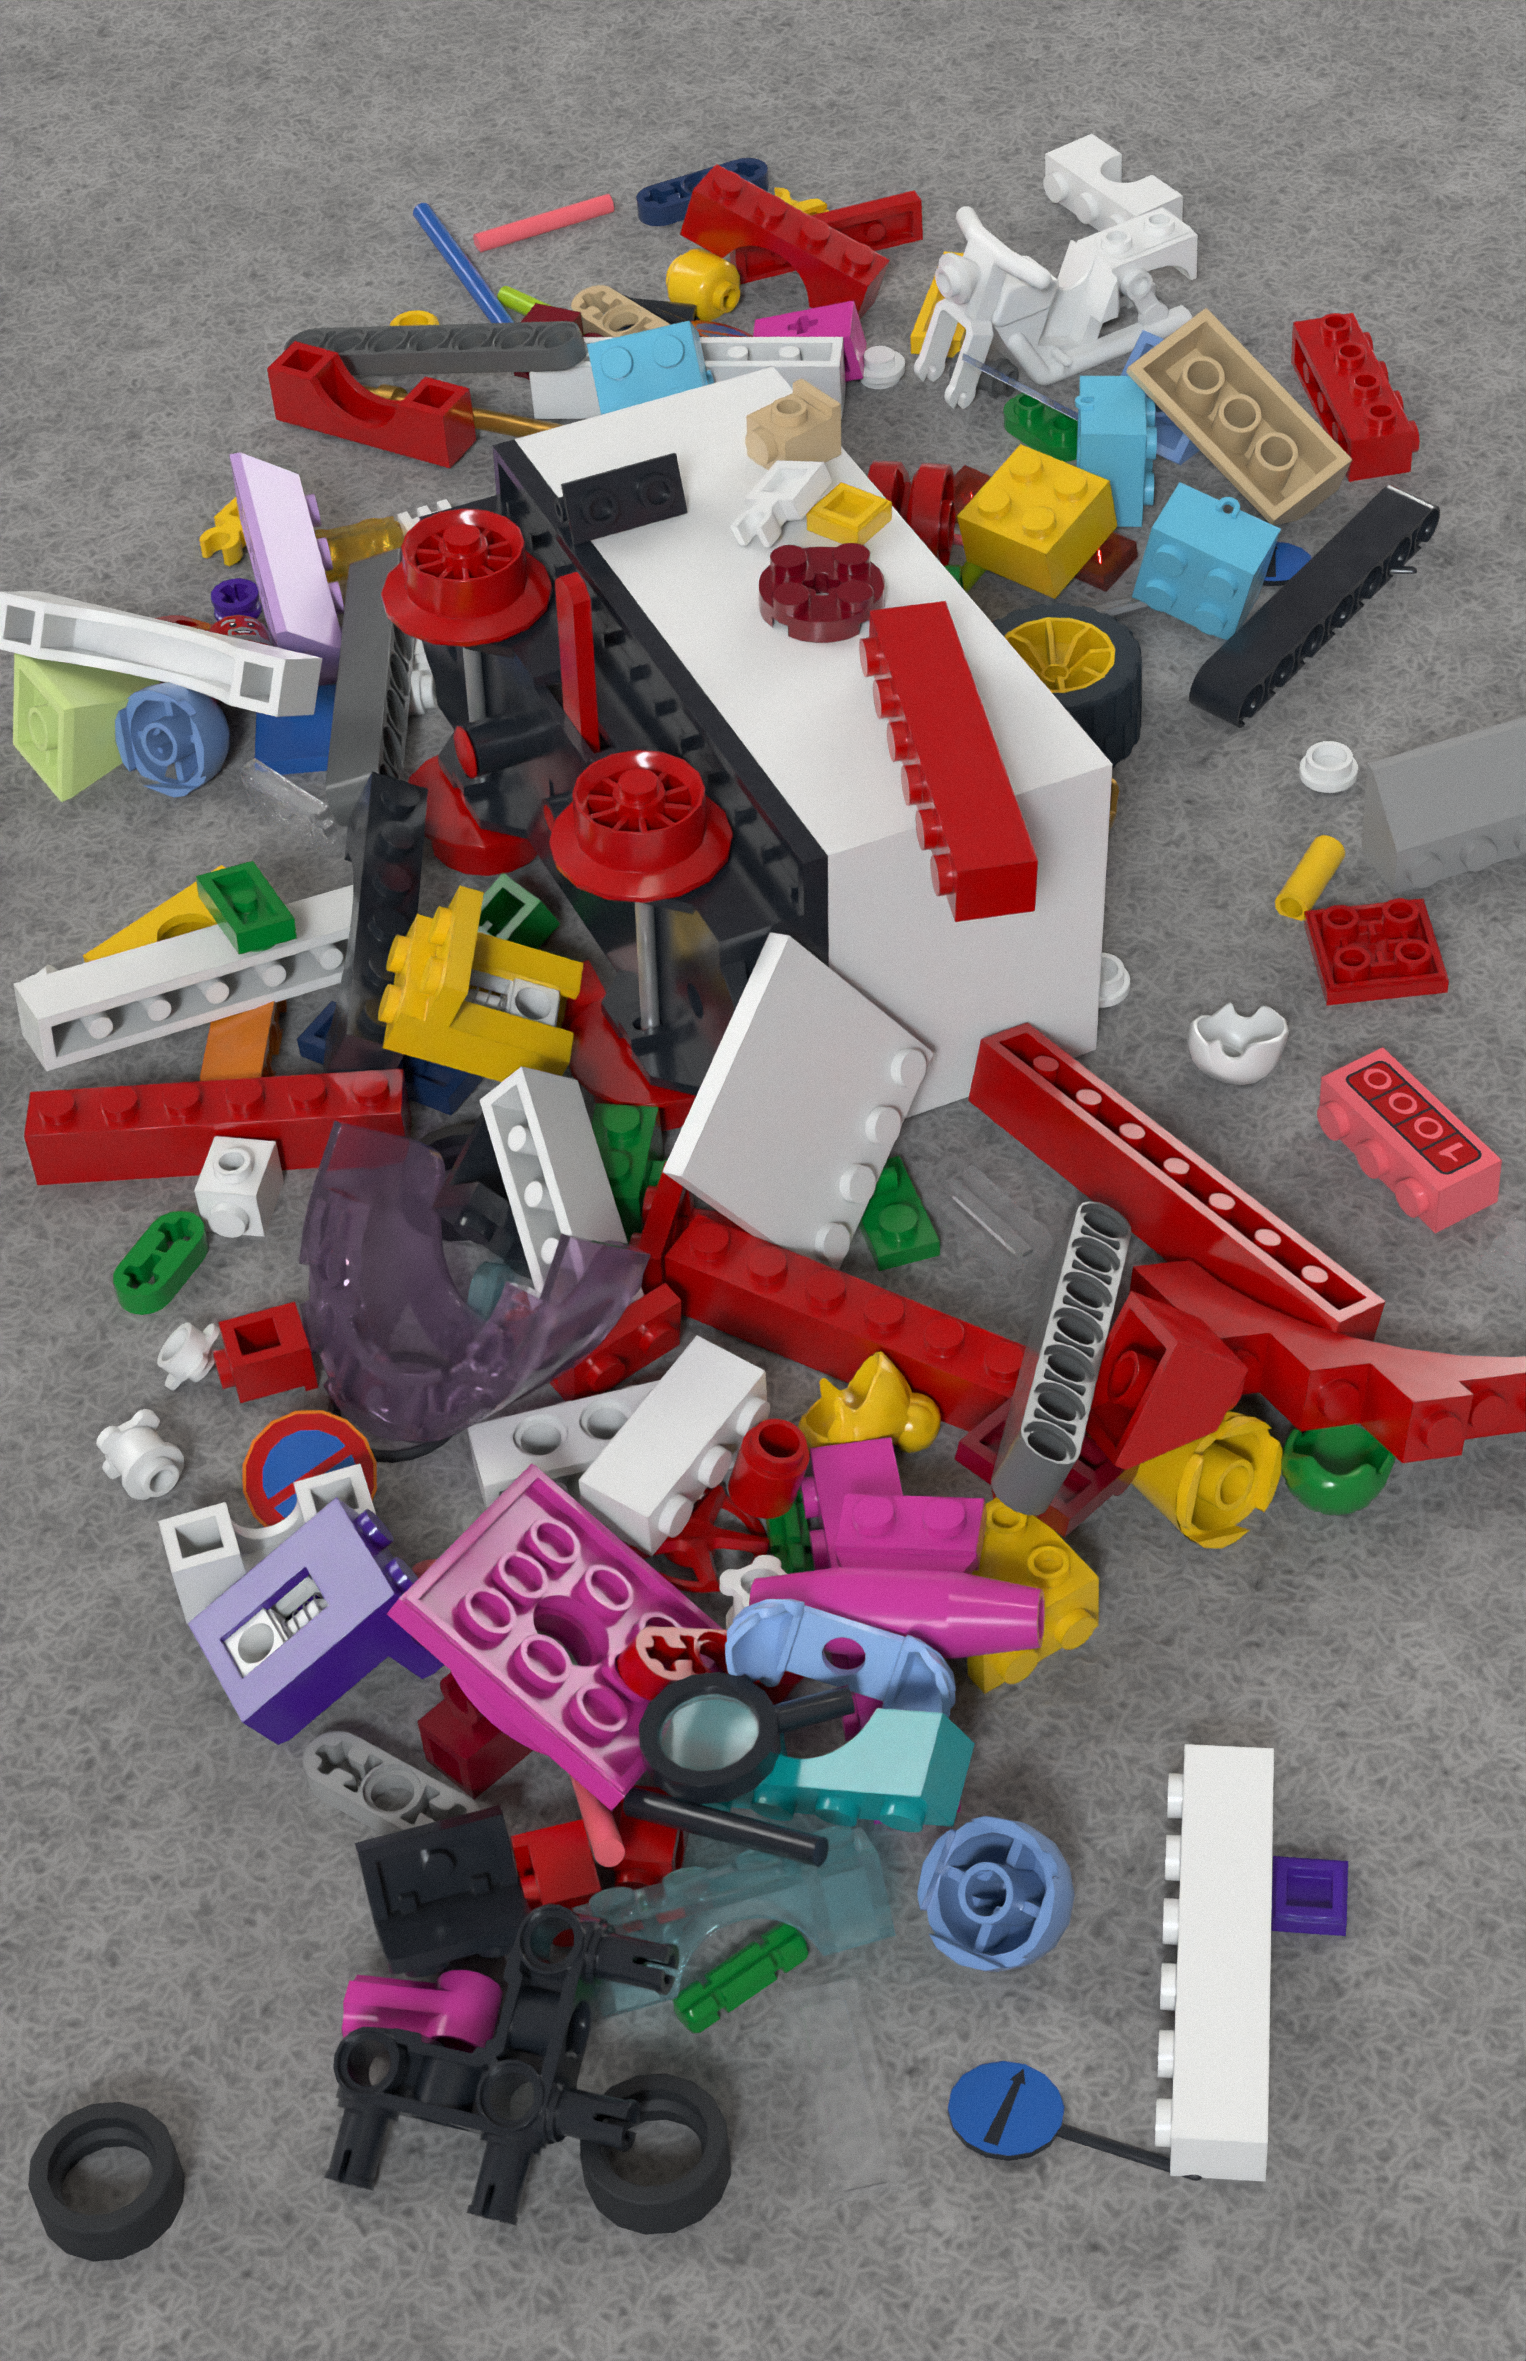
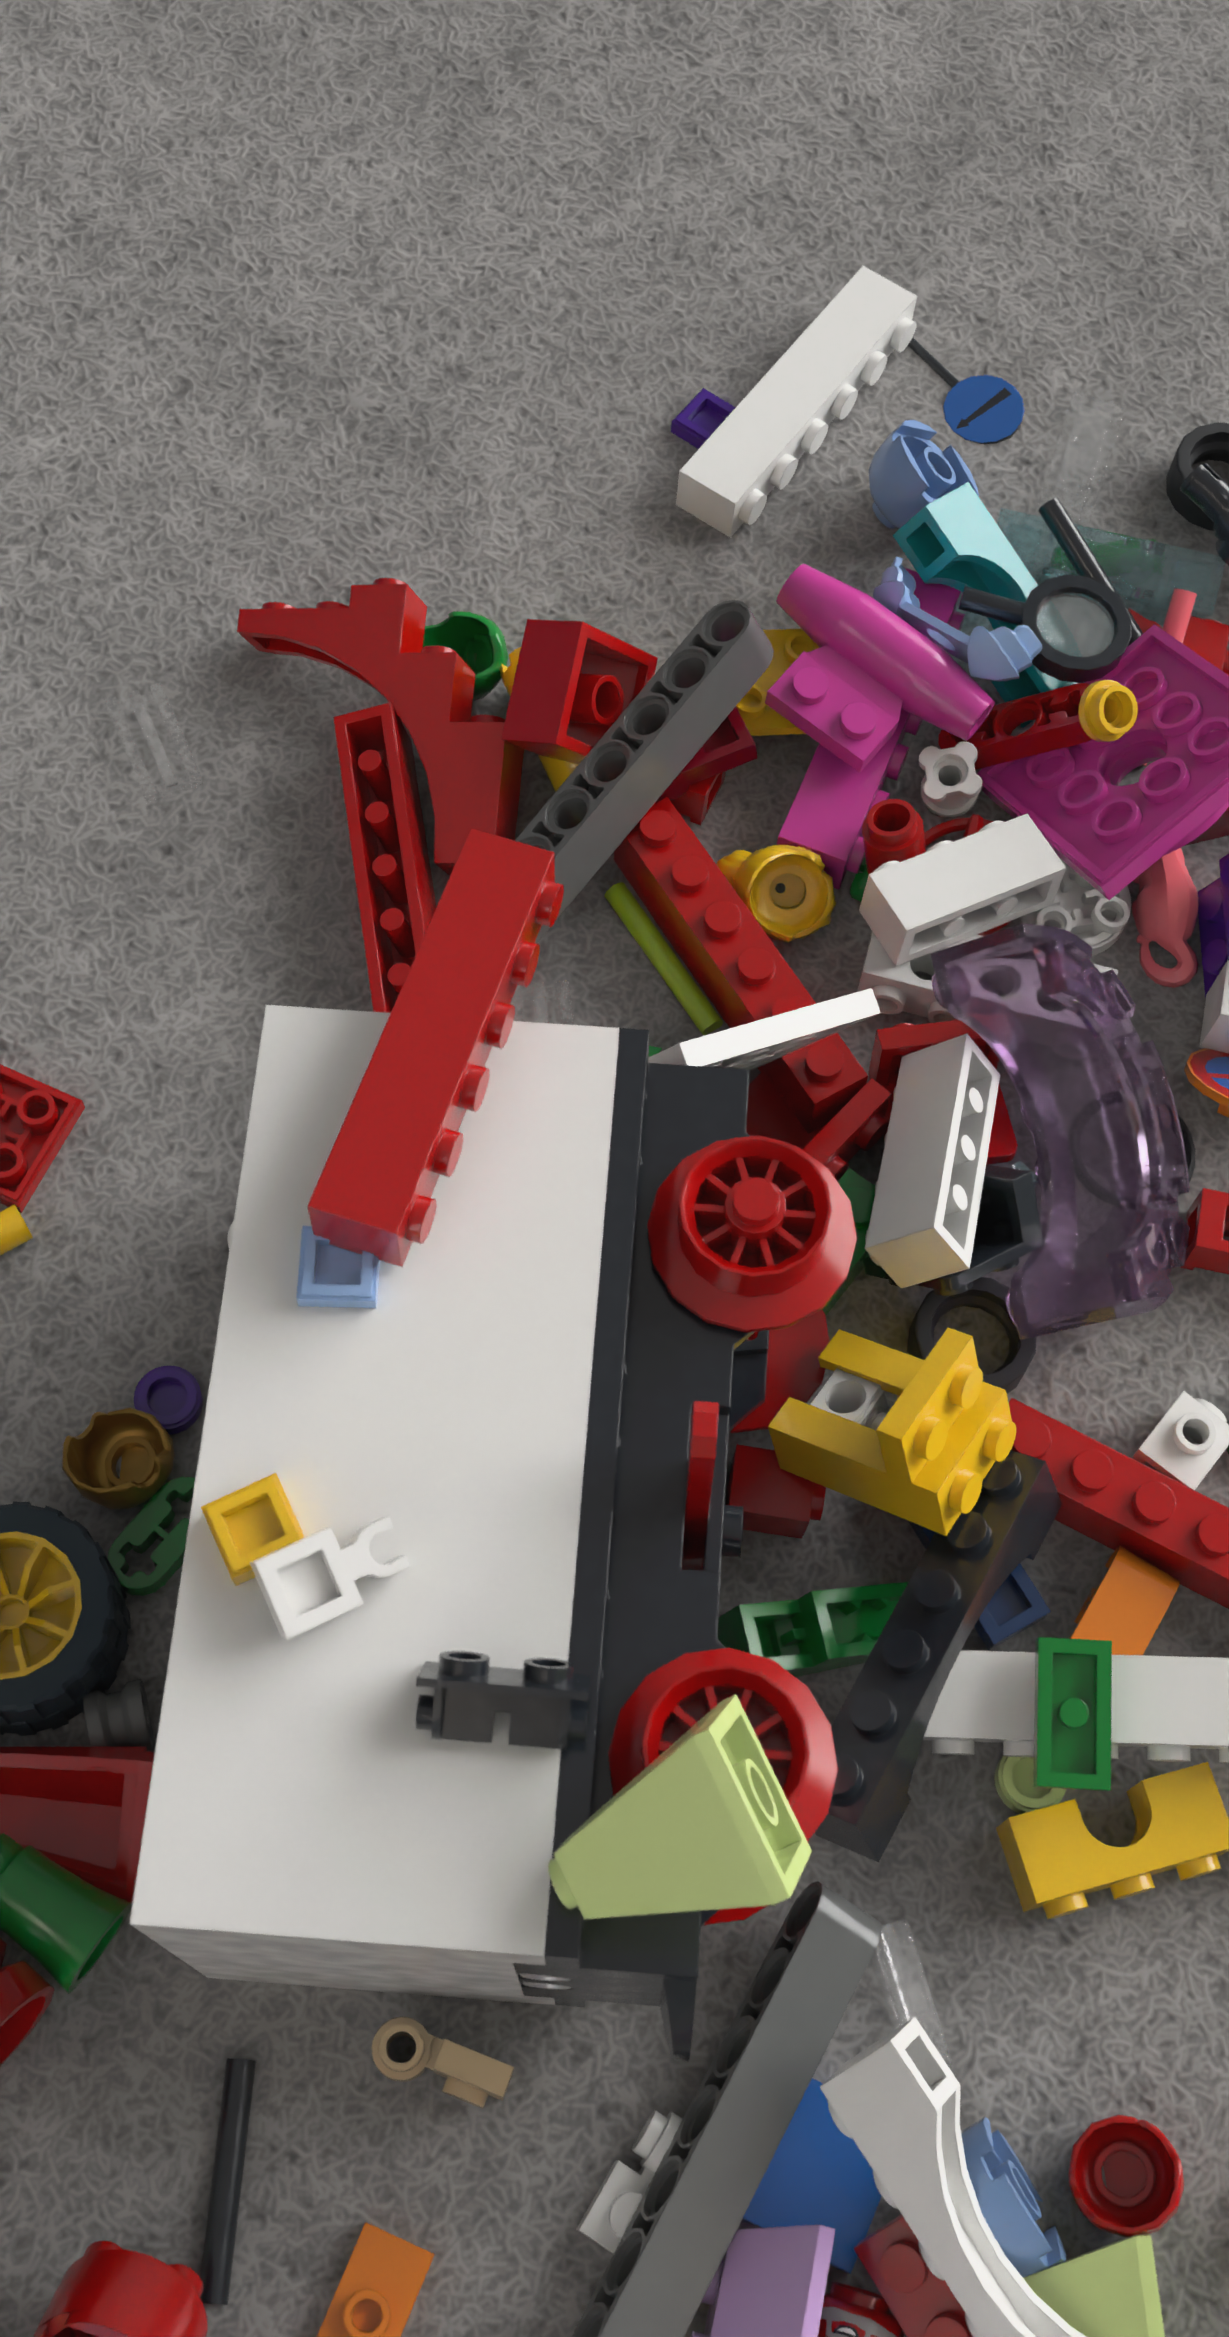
camera: 160 degrees left, 20 degrees up
(84, 784) = (1139, 2171): none -> red hair
(446, 469) = (688, 1831): none -> yellowish green slope
(618, 1628) = (1119, 708): none -> yellow plate
(795, 428) = (204, 1728): tan brick -> none
(798, 574) = (391, 1444): dark red plate -> none
(1236, 1046) = (206, 1057): white hair -> none
(1408, 1140) = (161, 901): coral brick -> none

